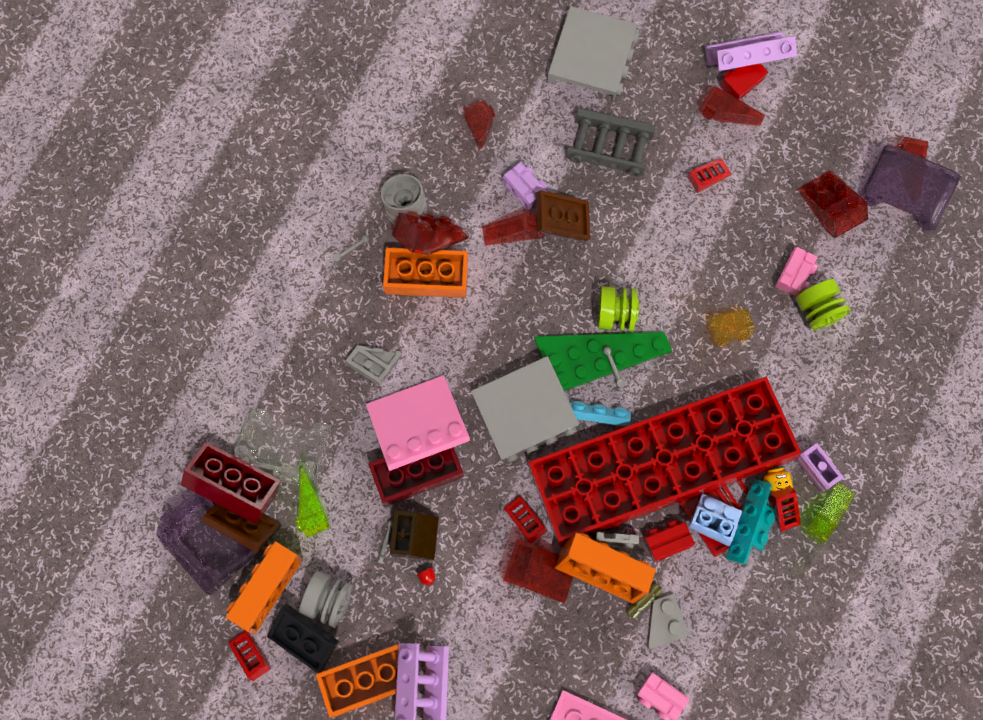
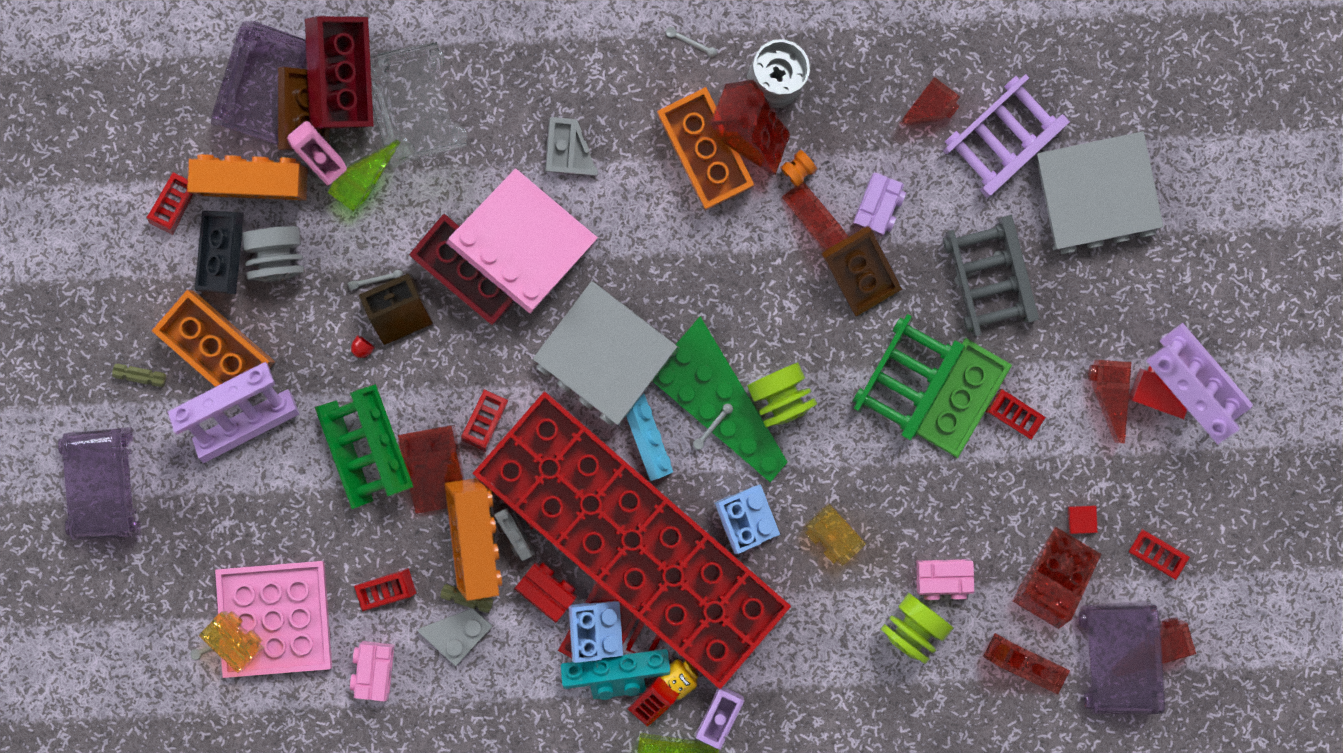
camera: 55 degrees right, 15 degrees up
(275, 525) = (317, 153): none -> bright pink brick
(473, 222) = (799, 168): none -> orange wheel
(499, 592) = (381, 441): none -> green fence
(540, 76) = (1009, 160): none -> lavender fence
(601, 646) = (406, 584): none -> red slope
(670, 223) = (936, 378): none -> green fence
(680, 202) = (964, 398): none -> bright green tile
(689, 378) = (747, 519): none -> light blue brick
(801, 169) = (1082, 519): none -> red tile
(866, 131) = (1163, 568): none -> red slope
(880, 251) = (1026, 663): none -> clear red slope

